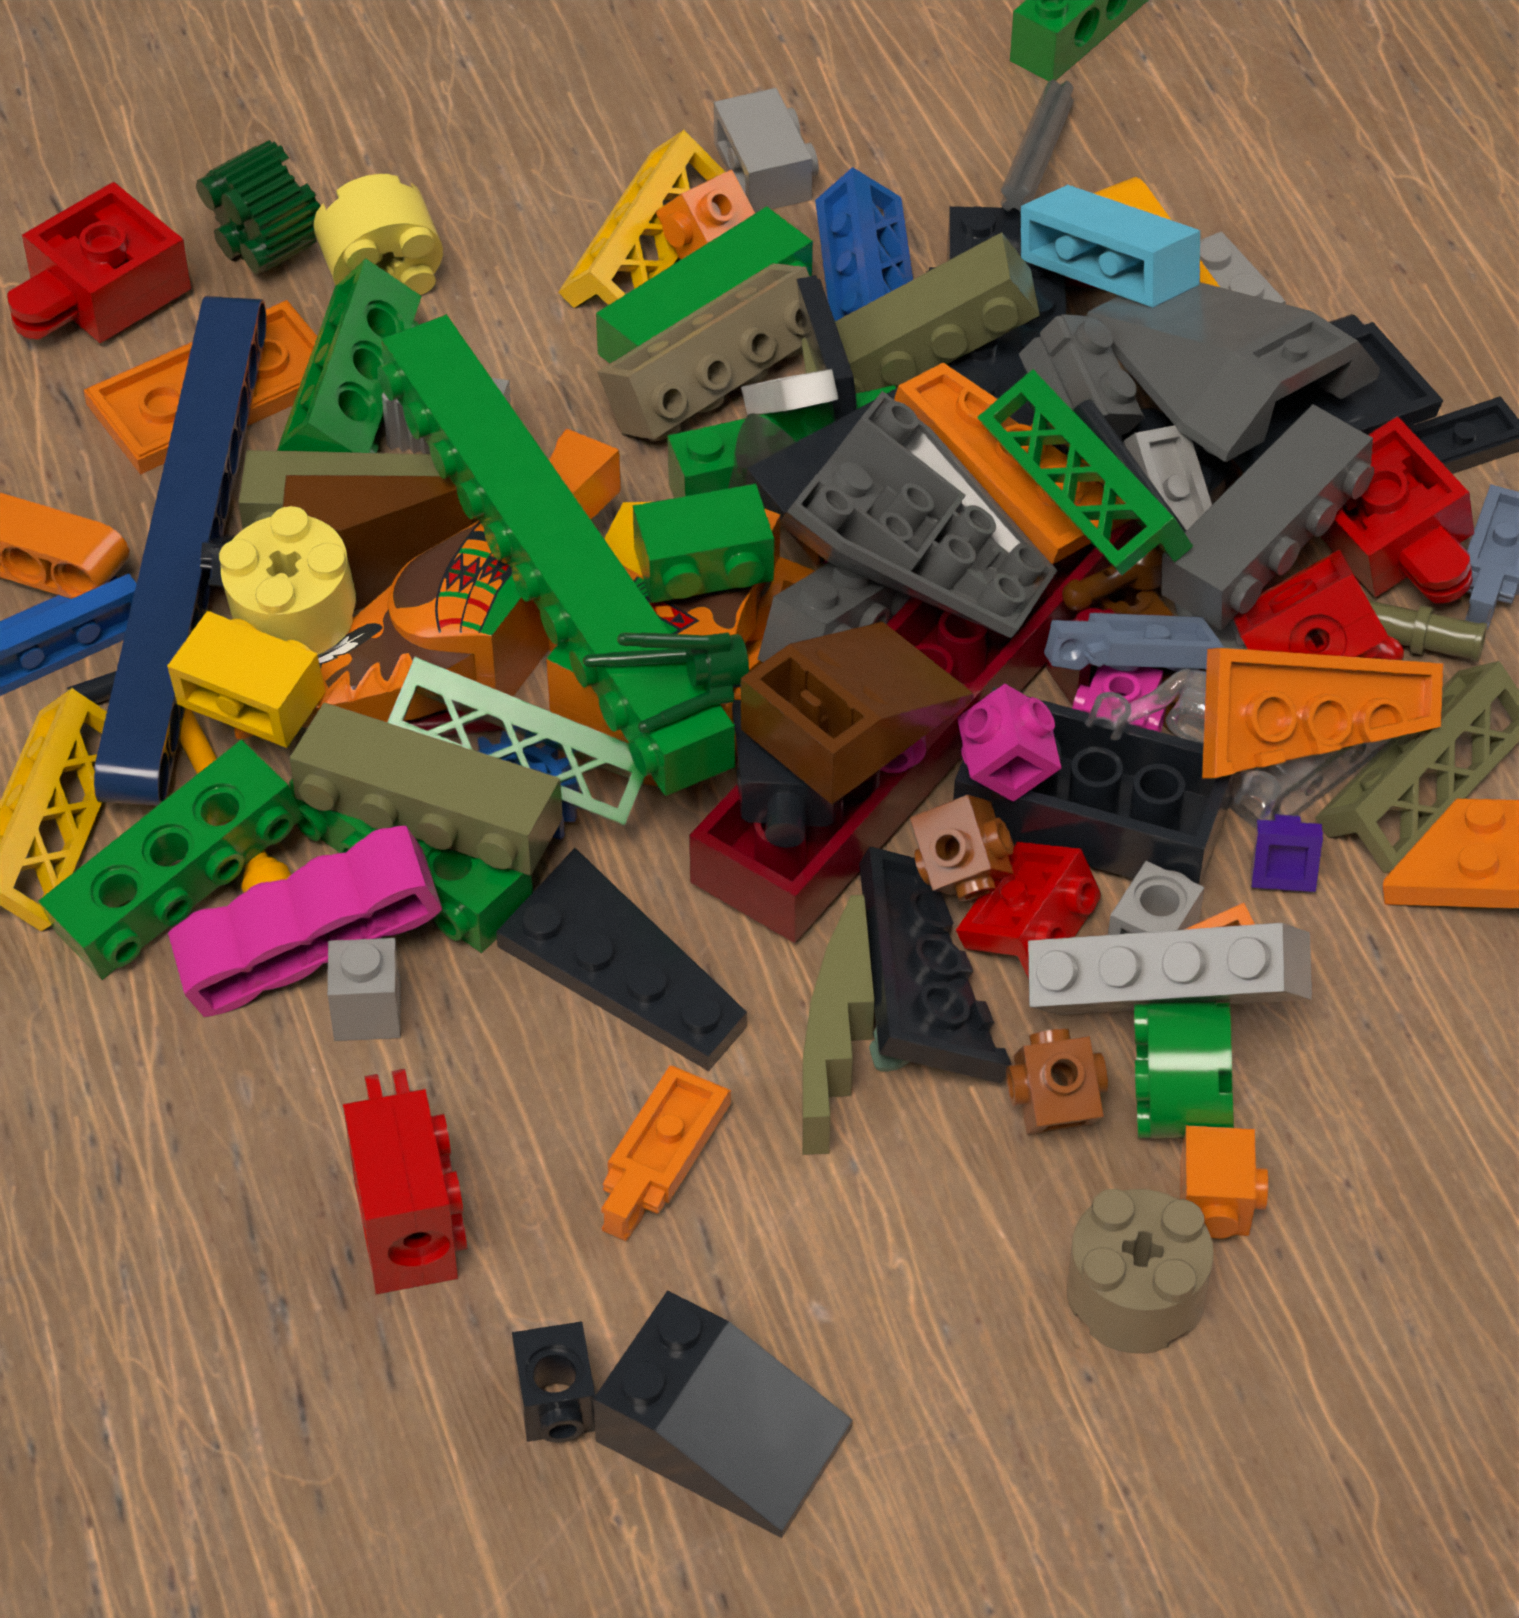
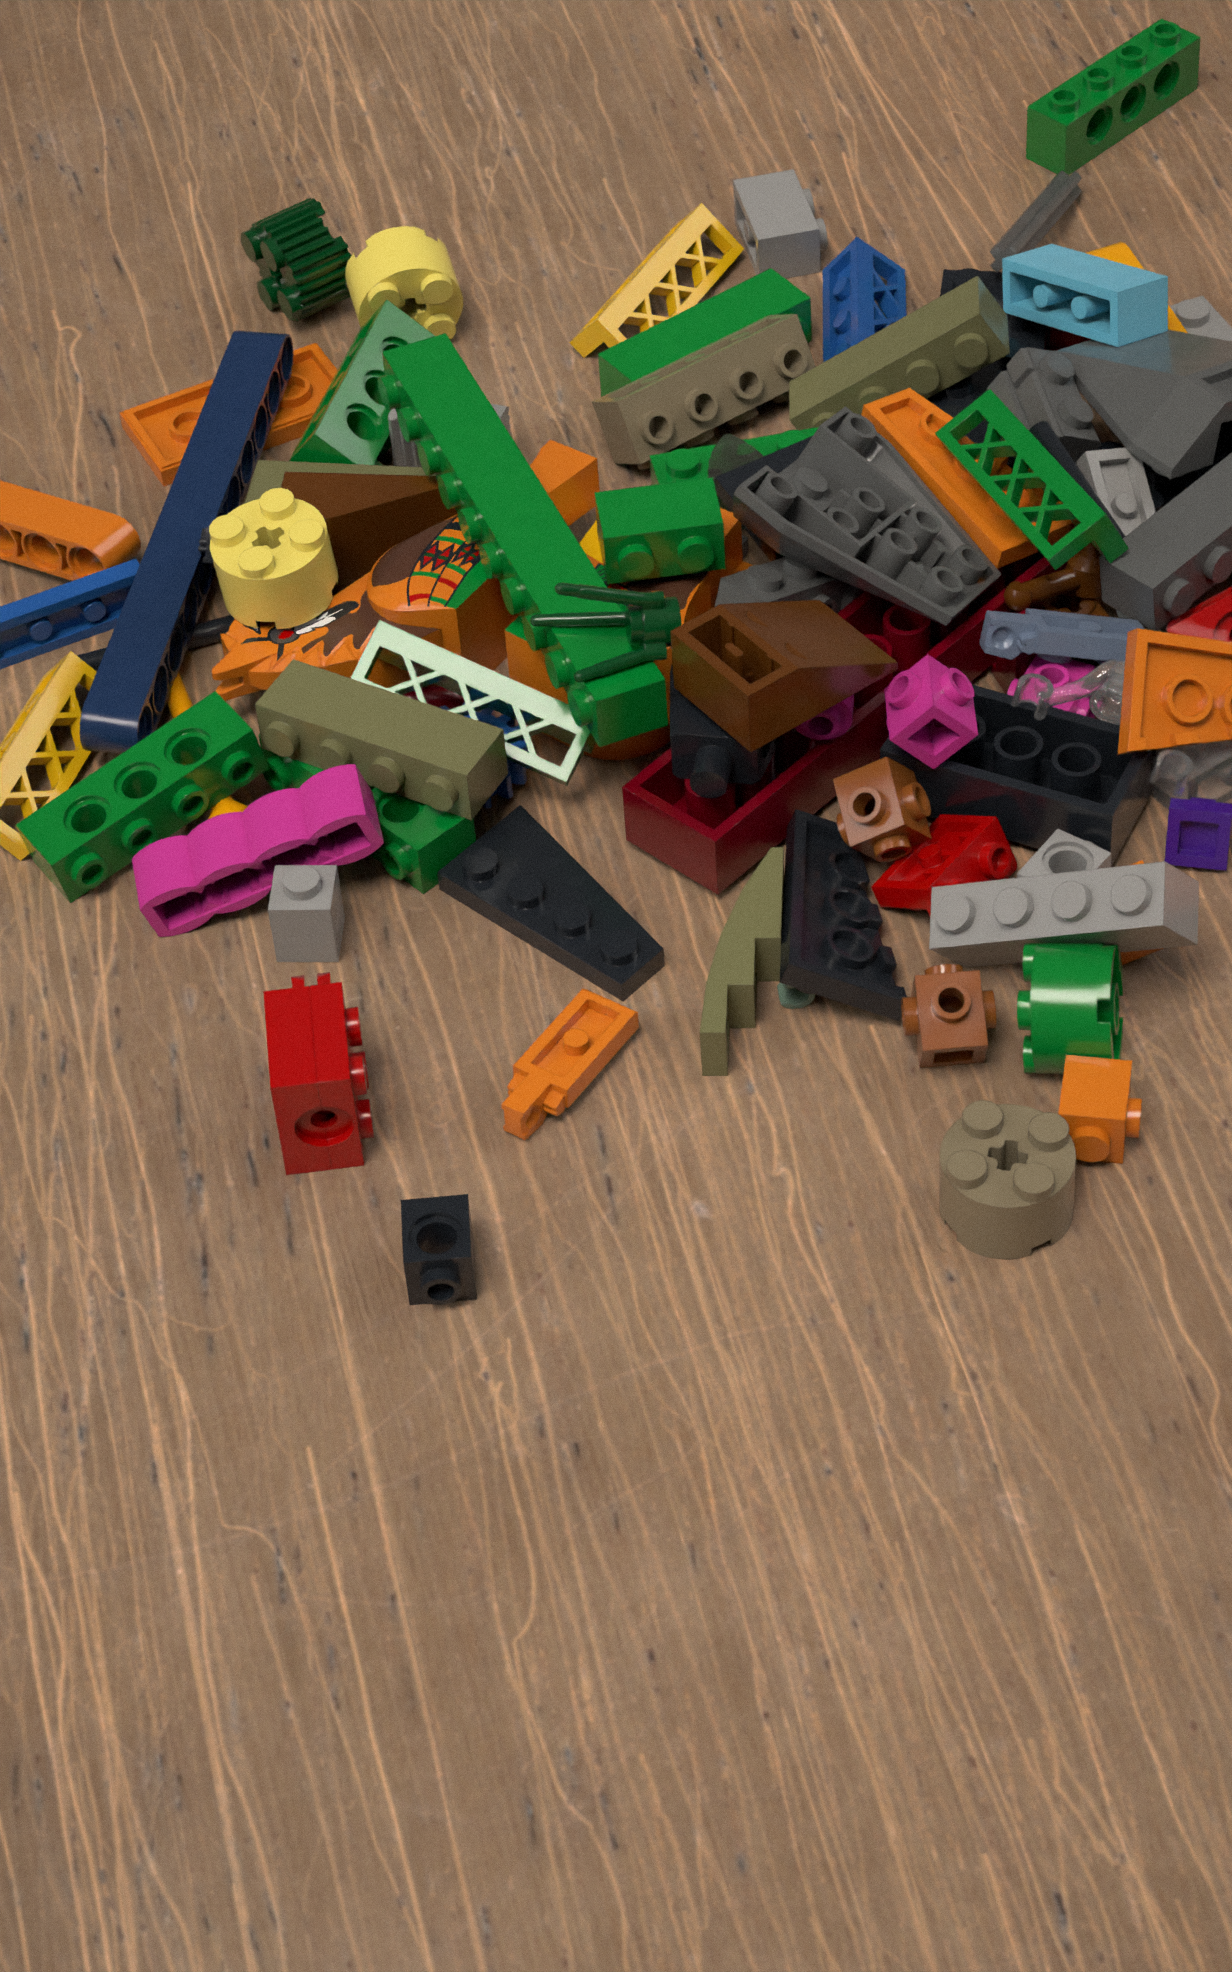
camera: 10 degrees right, 5 degrees down
(99, 266) = (144, 309): red brick -> none
(247, 678) = (225, 639): yellow brick -> none
(704, 213) = (711, 270): orange brick -> none
(718, 1415) = (587, 1285): black slope -> none
(790, 392) = (768, 413): white beam -> none
(826, 343) = (804, 375): black tile -> none

